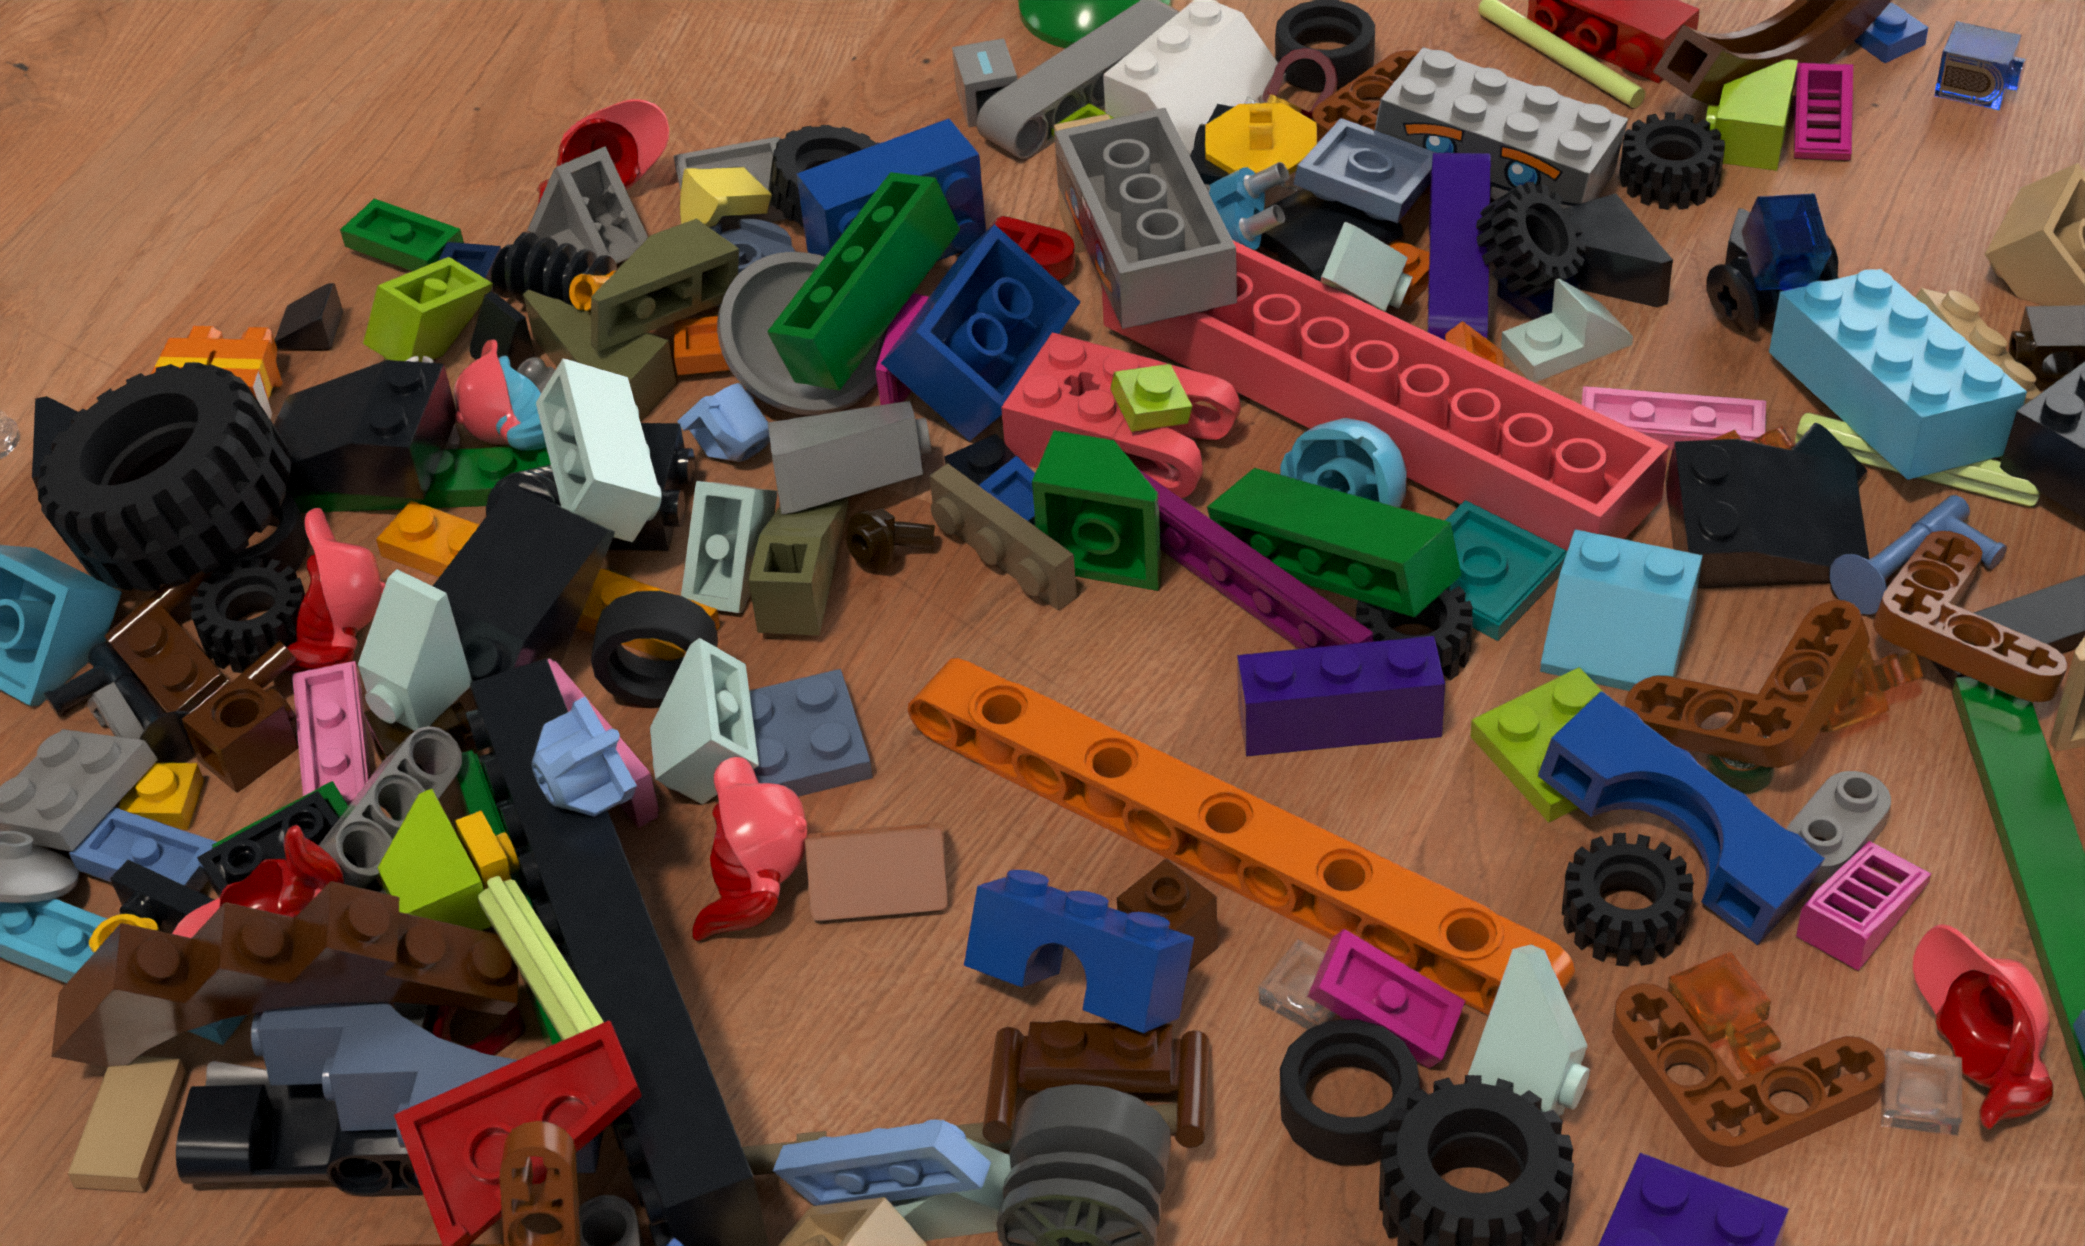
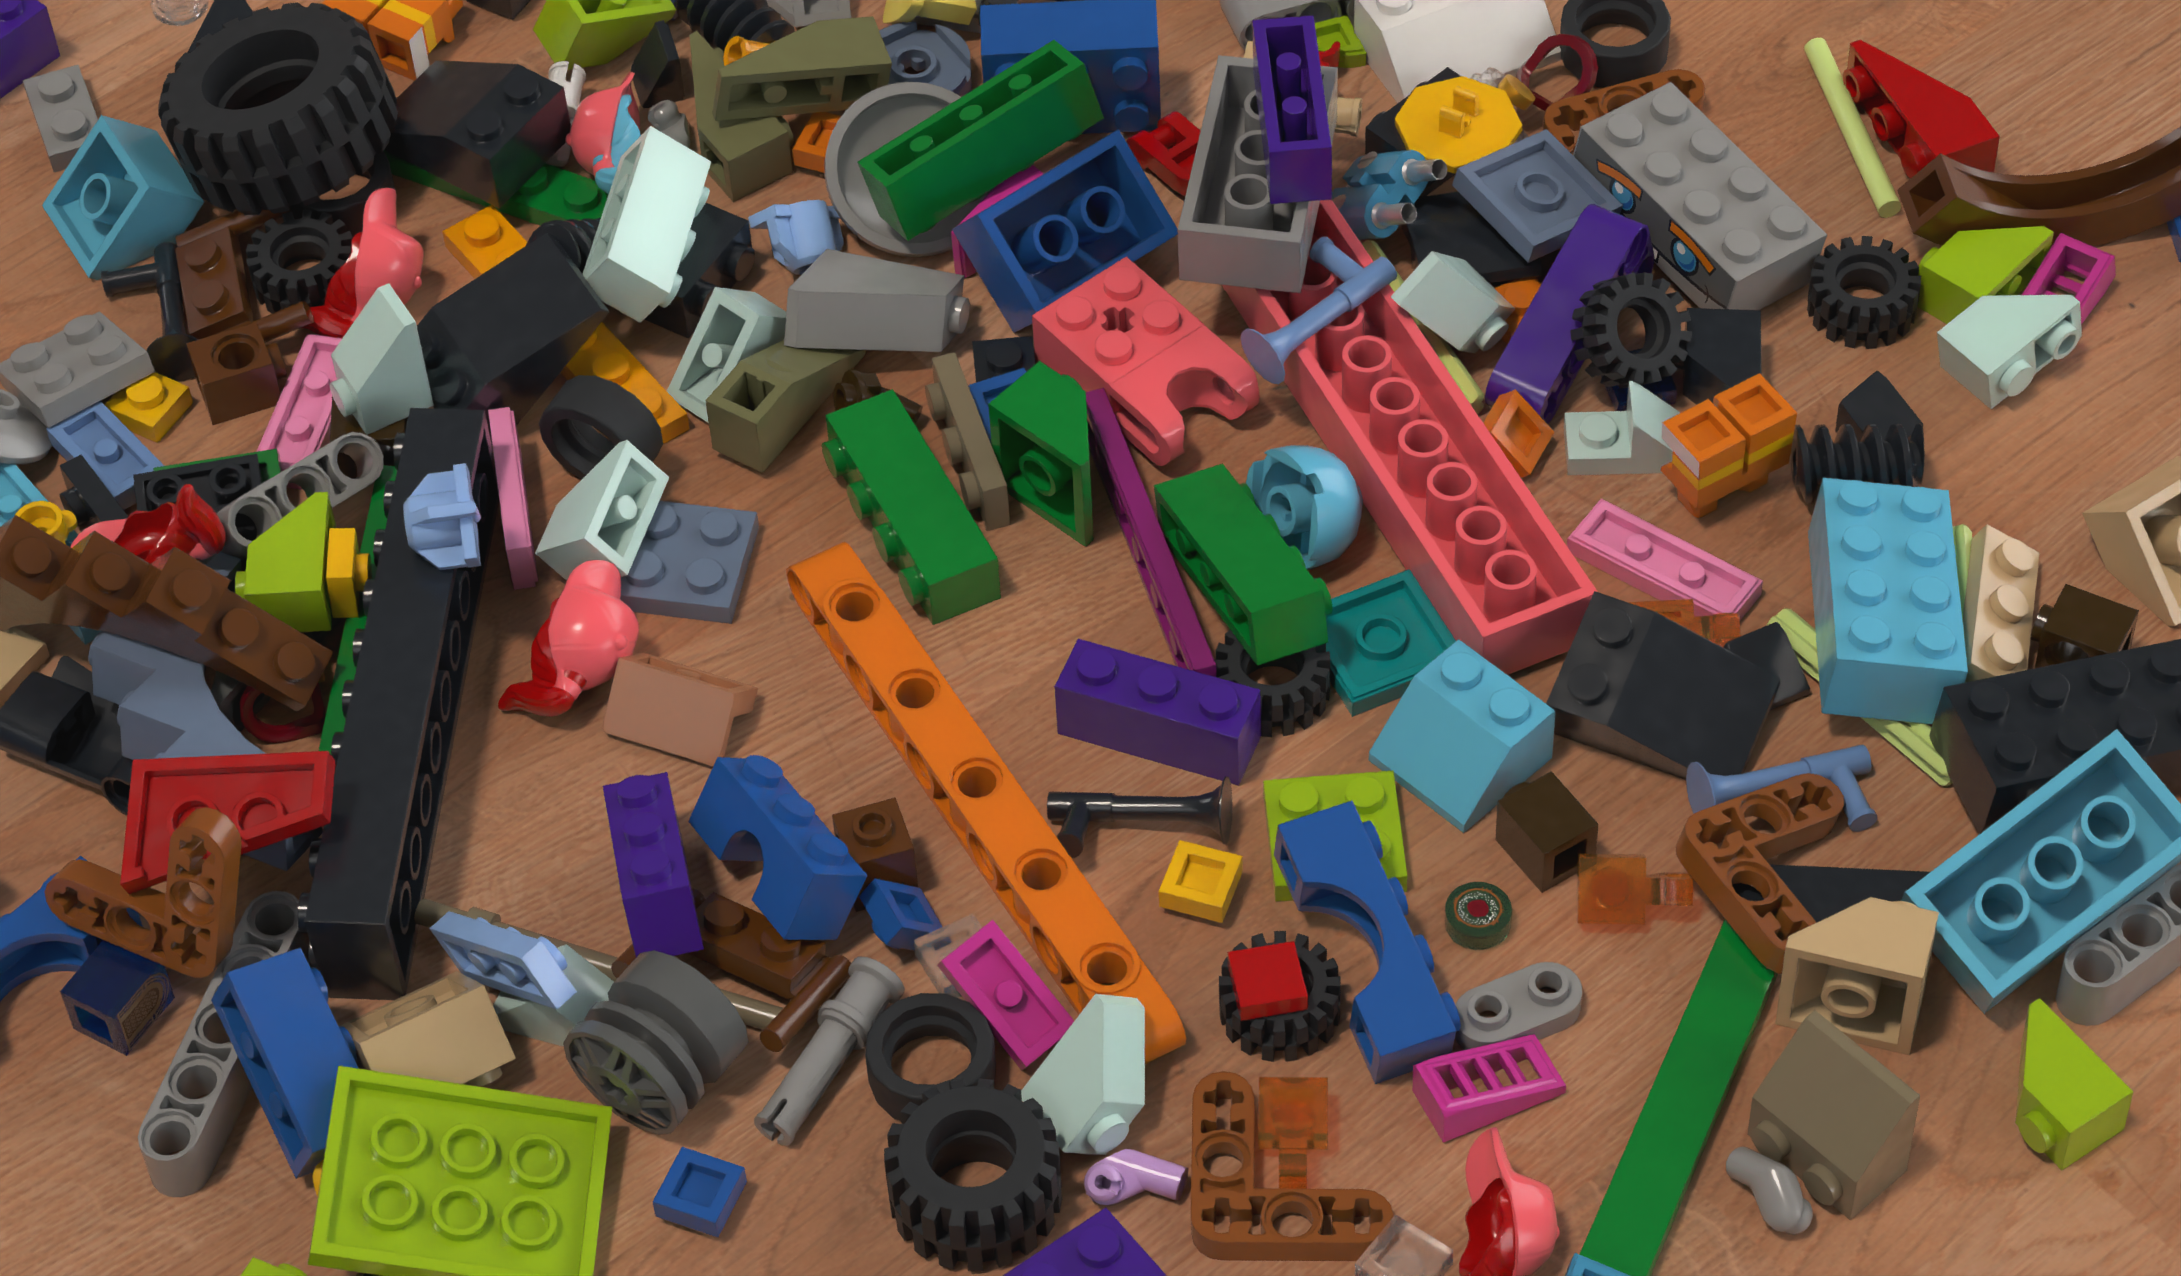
camera: 25 degrees right, 5 degrees up
(113, 711) = (145, 315): light grey tile -> none
(538, 958) = (328, 677): yellowish green axle -> none
(970, 1017) = (652, 865): none -> dark purple brick
(988, 609) = (911, 507): none -> green brick
(1151, 397) = (1162, 359): lime plate -> none
(1170, 138) = (1292, 110): none -> dark purple brick
(1227, 971) = (898, 913): none -> blue plate
(1242, 359) = (1271, 350): none -> medium blue piece
(1243, 1096) = (841, 1030): none -> light grey pin
(1328, 807) = (1080, 808): none -> black piece
(1480, 828) = (1200, 881): none -> yellow plate
(1609, 1116) = (1131, 1173): none -> lavender arm
(1626, 883) = (1267, 980): none -> red tile
(1673, 299) = (1728, 444): none -> orange hips
(1742, 652) = (1545, 830): none -> dark brown brick
(1775, 704) = (1517, 880): dark orange beam -> none
(1786, 241) = (1856, 429): clear blue brick -> none
(1820, 151) = (2006, 341): none -> light aqua slope

